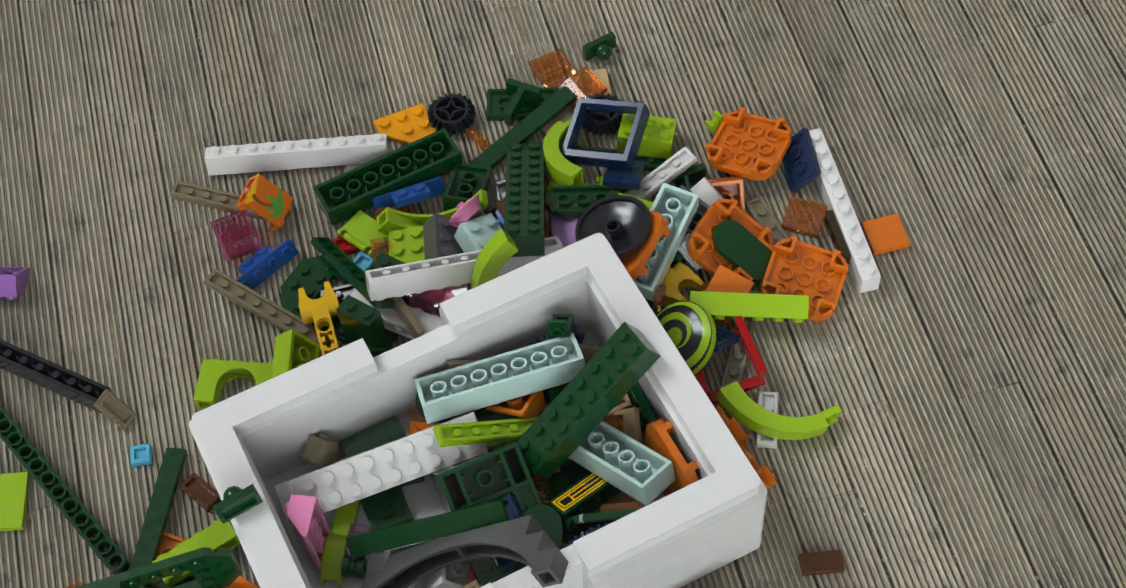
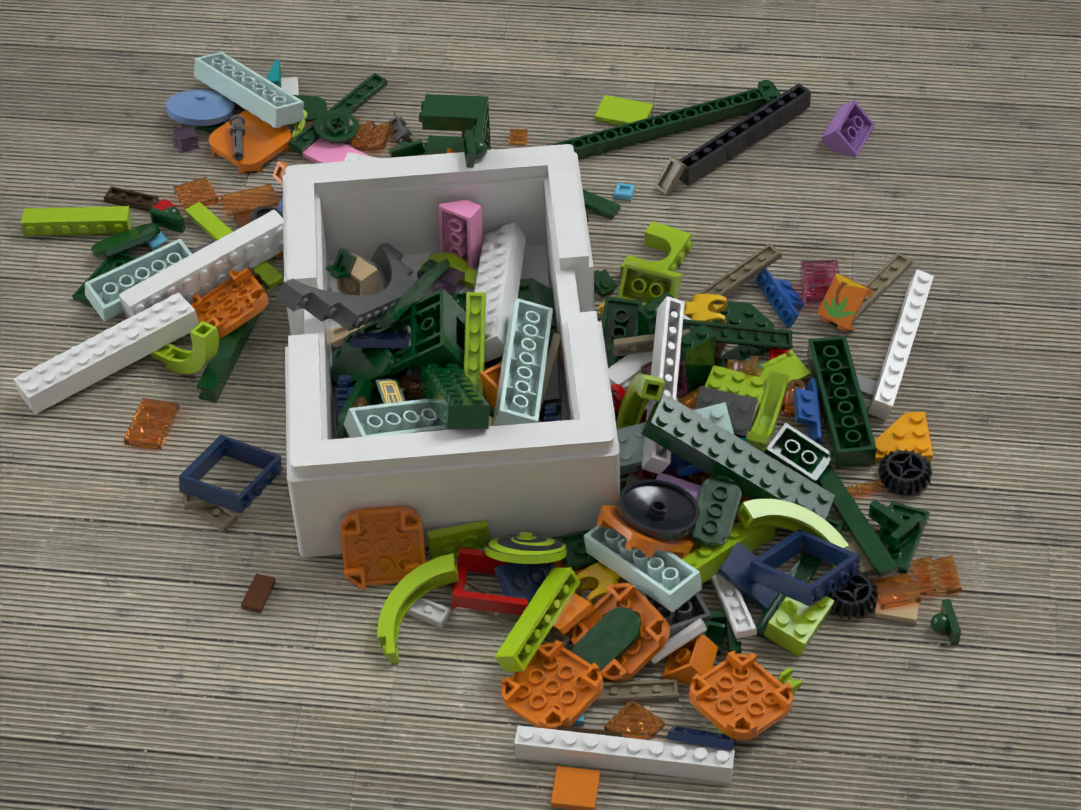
camera: 110 degrees right, 10 degrees down
(321, 450) = (536, 263): dark tan slope -> none
(466, 211) = (742, 416): bright pink piece -> none
(560, 325) = (547, 412): dark green bracket -> none
(659, 298) = (583, 552): clear orange tile -> none

